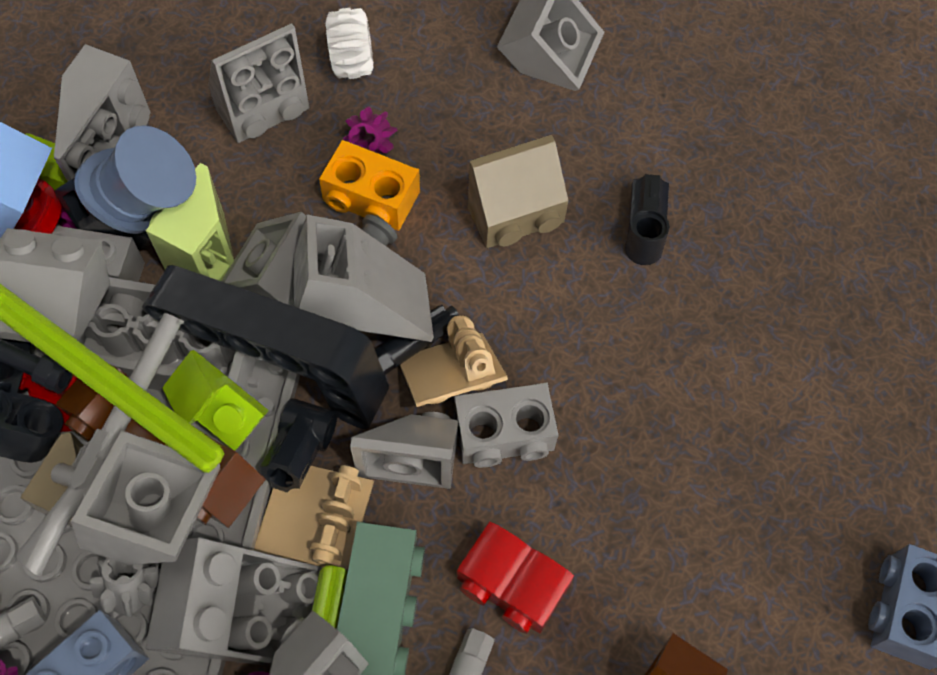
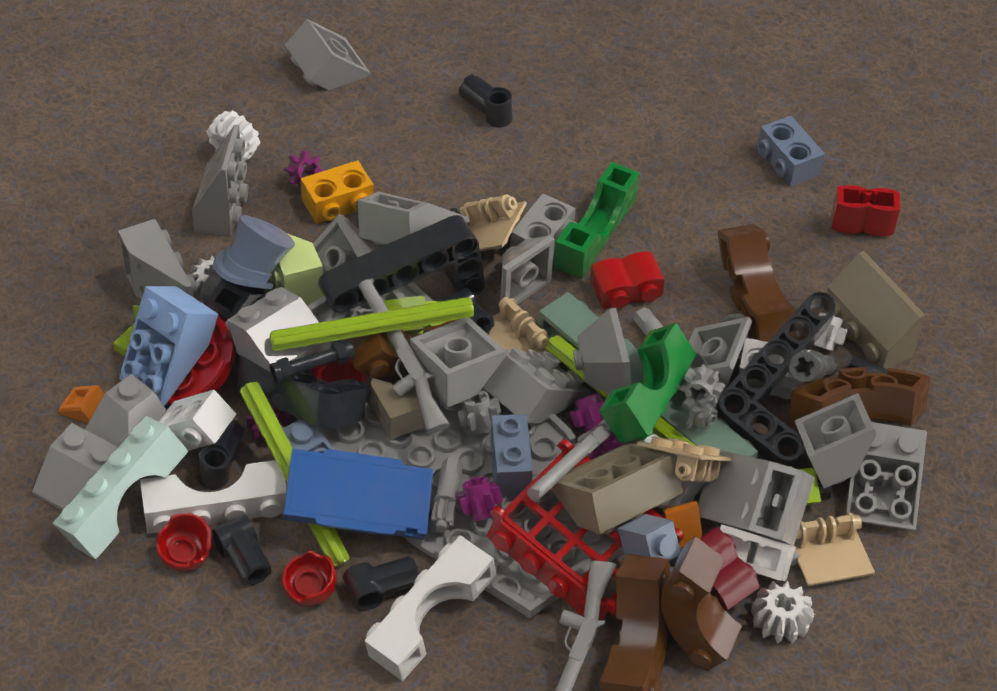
camera: 50 degrees left, 15 degrees down
(517, 192) = (418, 134): slope -> none
(526, 482) = (583, 241): none -> green arch

